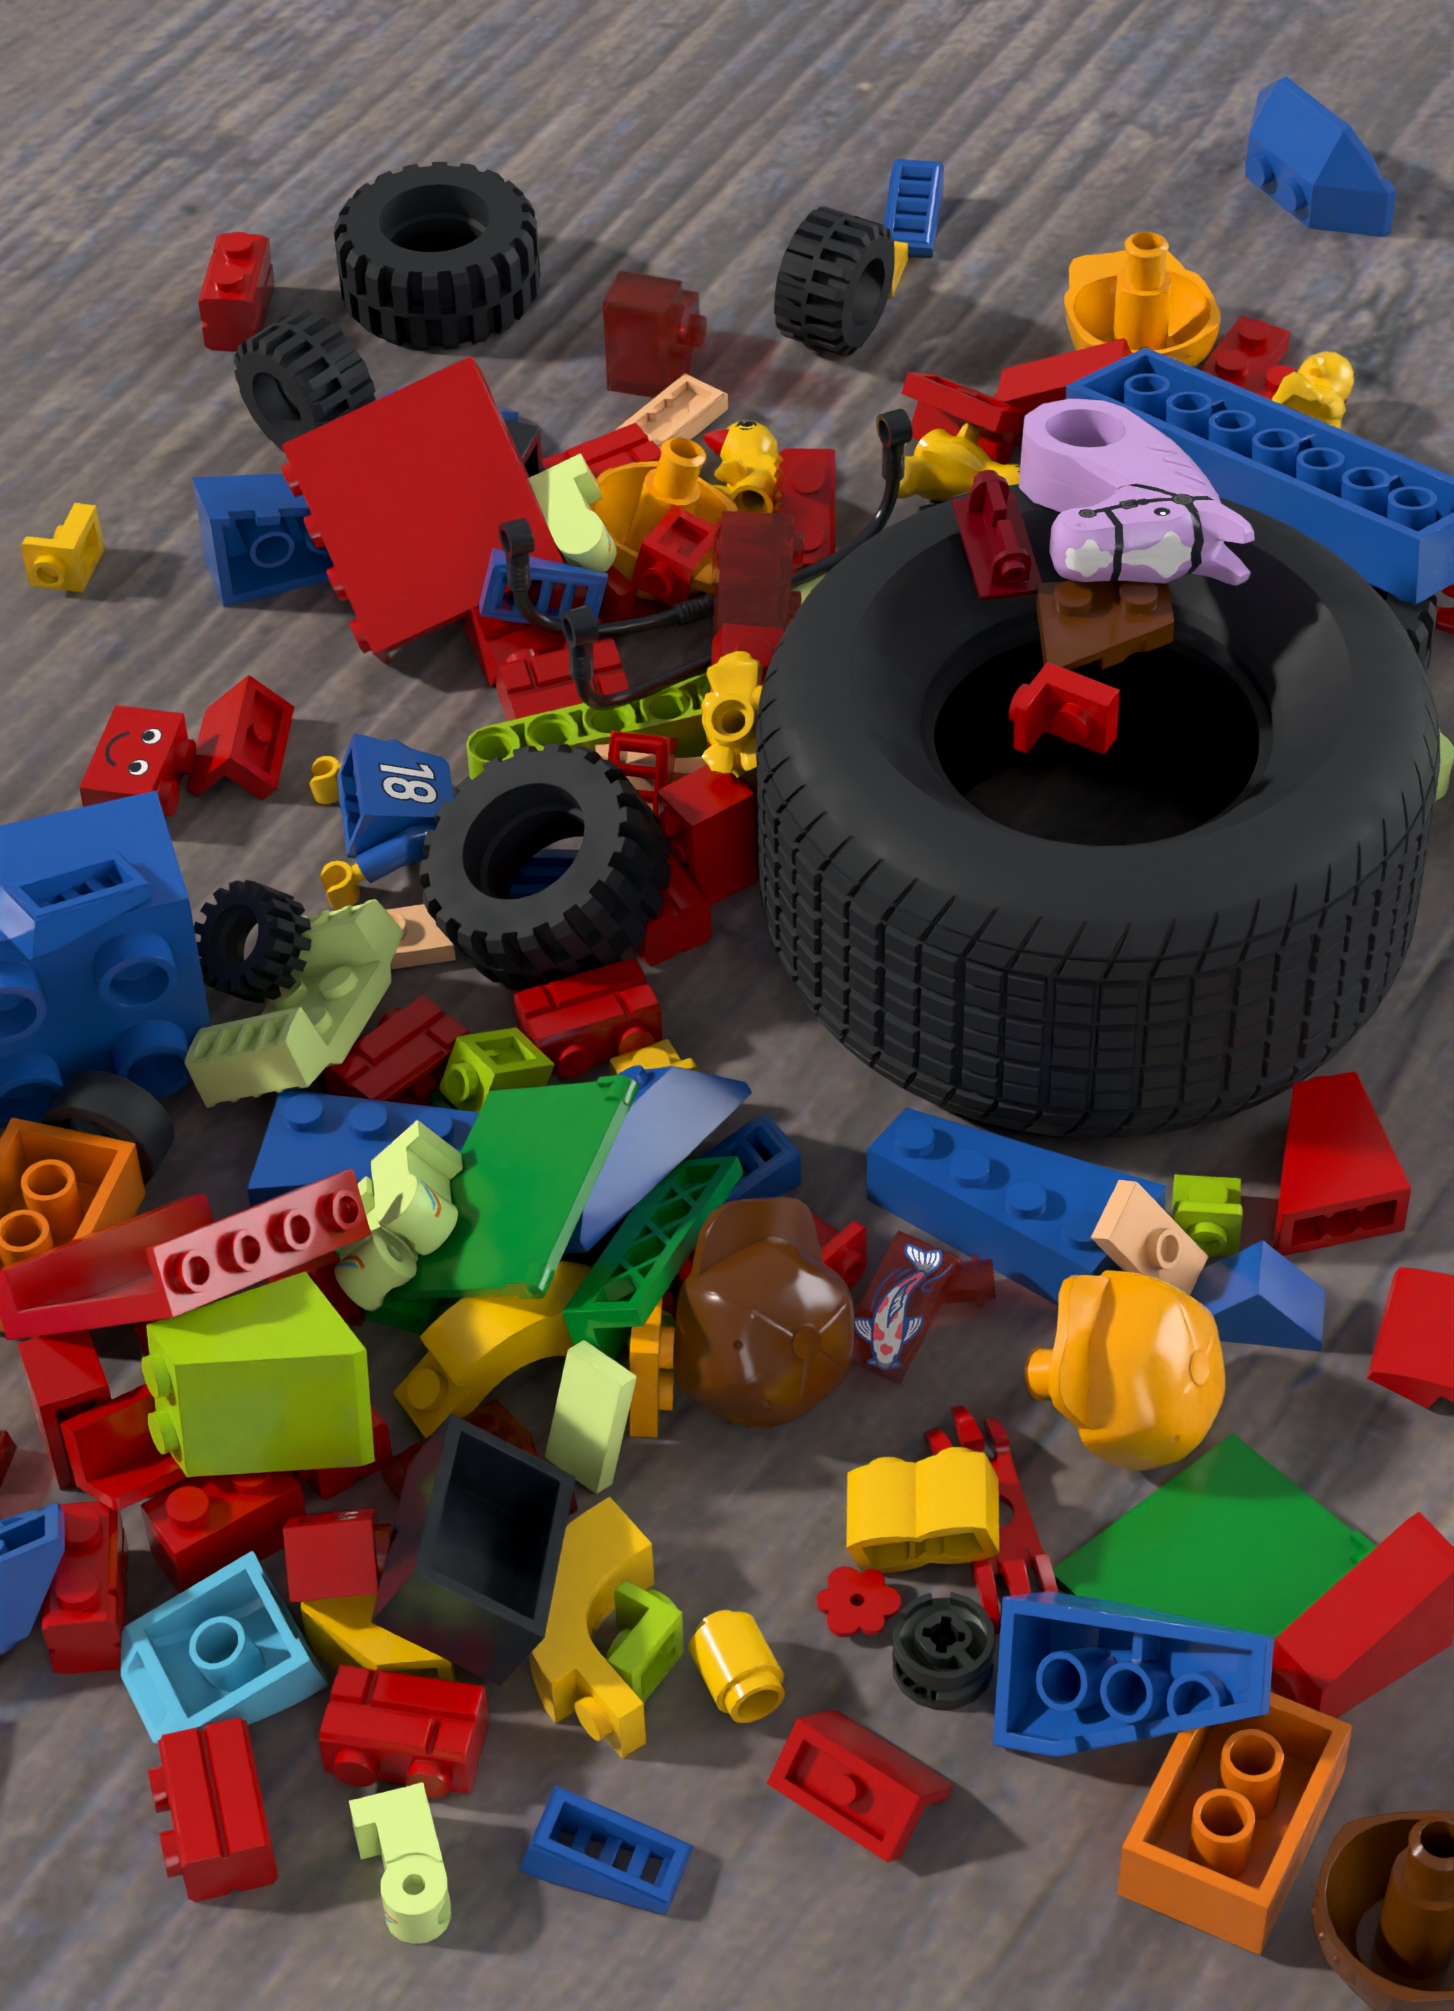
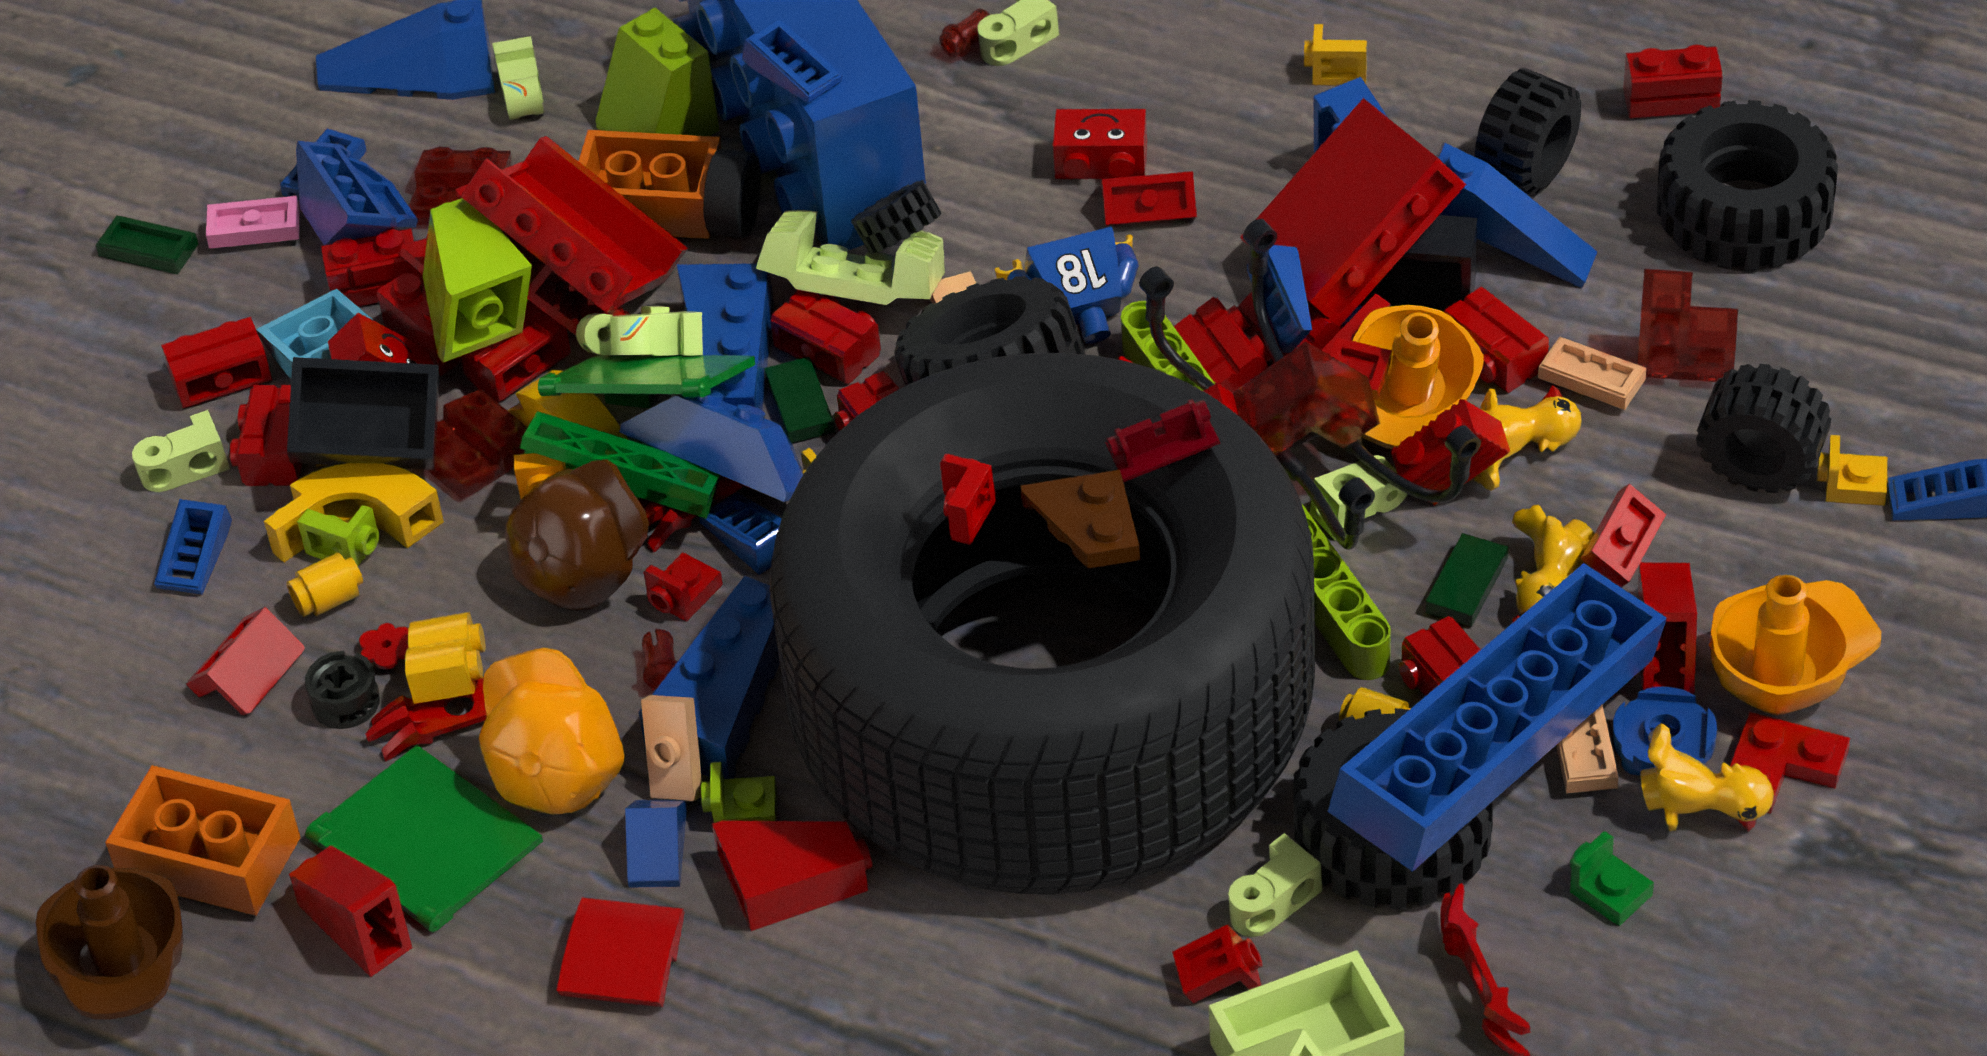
camera: 85 degrees right, 0 degrees up
(492, 1063) = (815, 374): lime bracket -> none
(564, 501) = (1357, 293): yellowish green leg -> none
(590, 1416) = (498, 472): yellowish green tile -> none
(901, 1305) = (624, 627): tile -> none
(1118, 1673) = (307, 749): blue wedge -> none
(1125, 498) = (1222, 513): lavender animal -> none

